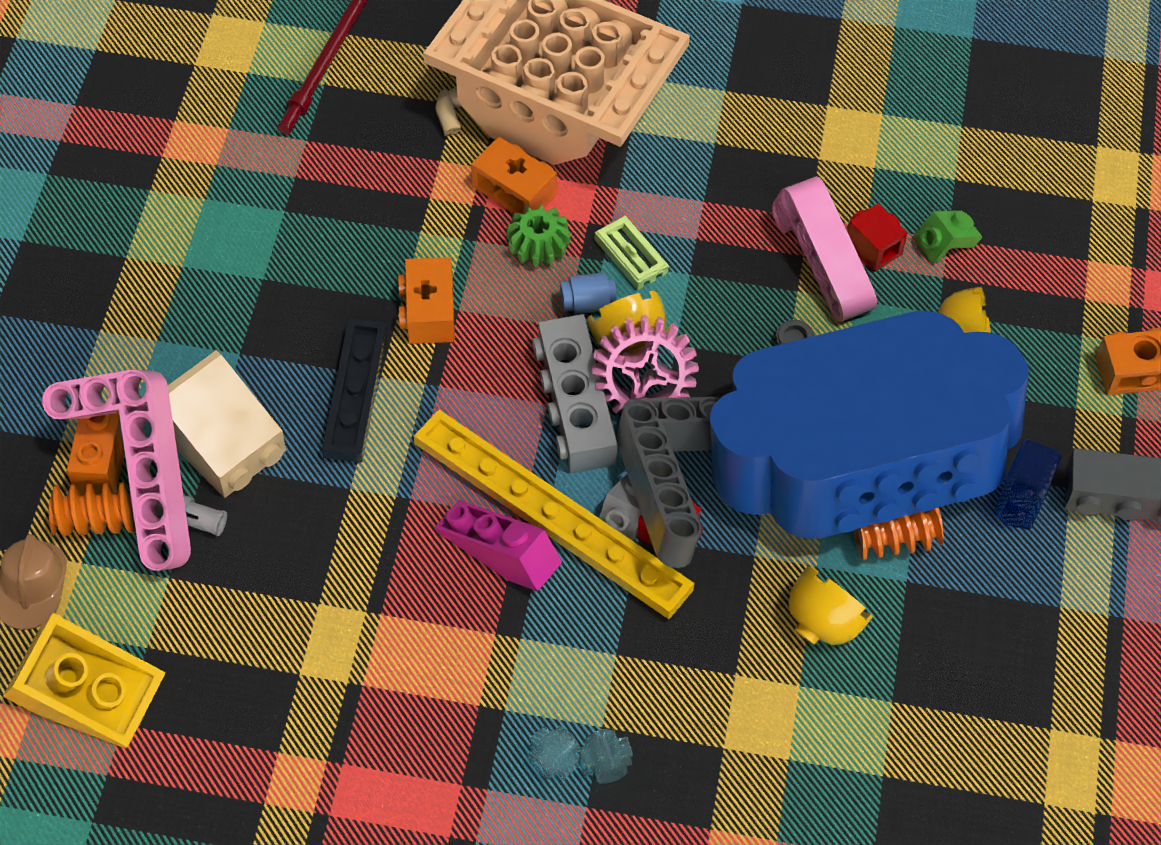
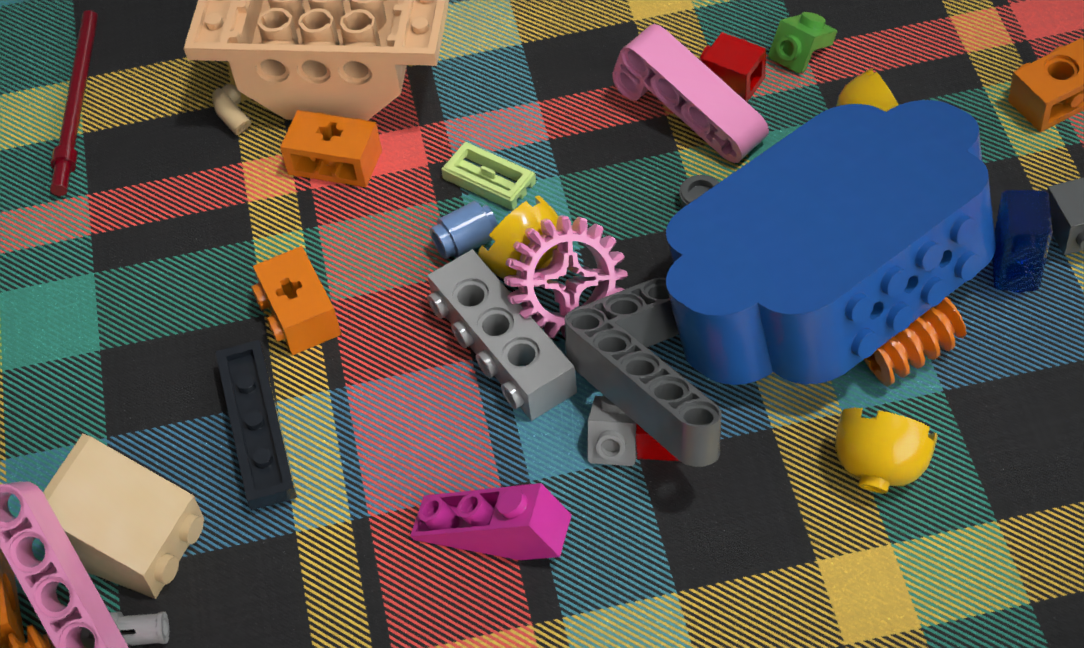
camera: 15 degrees left, 5 degrees down
(538, 235) = (383, 193): bright green gear -> none
(554, 512) = (515, 461): yellow plate -> none

